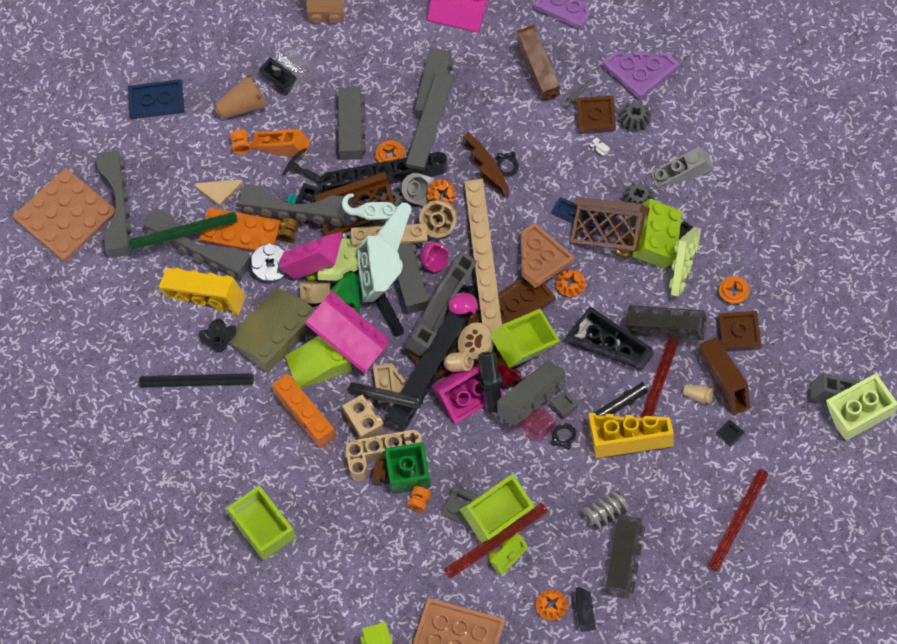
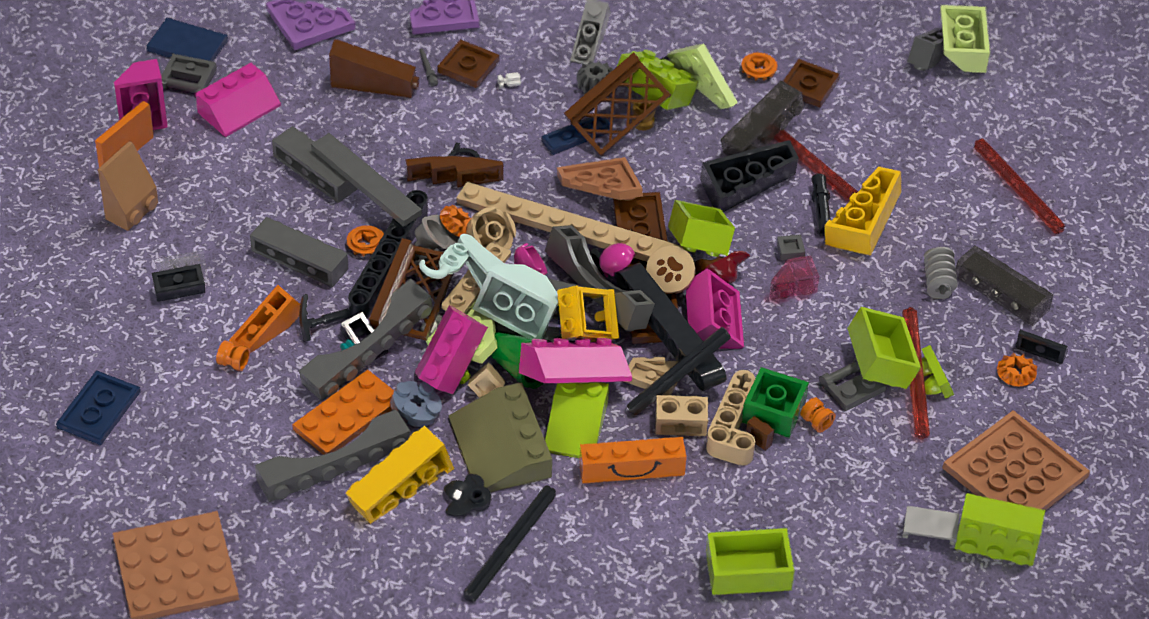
camera: 65 degrees left, 15 degrees down
(117, 235) = (162, 490): dark grey arch -> none
(182, 230) = (312, 452): dark green axle -> none
(219, 191) = (276, 408): tan tile -> none
(241, 99) = (181, 322): medium nougat cone -> none
(288, 229) = (384, 366): pearl gold wheel -> none
(364, 612) = (931, 523): none -> light grey hinge
(380, 299) = (573, 313): none -> yellow window
(458, 362) = (685, 293): tan brick -> none
(490, 380) = (721, 273): black piece -> none
(531, 393) = (768, 256): dark grey brick -> none
(566, 444) = (838, 269): black piece -> none
(574, 289) = (650, 184): orange gear -> none
(635, 116) = (498, 35): dark grey gear -> none
(701, 393) = (858, 142): tan cone -> none
(725, 375) = (854, 111): reddish brown slope -> none
(730, 433) = (916, 146): black tile -> none

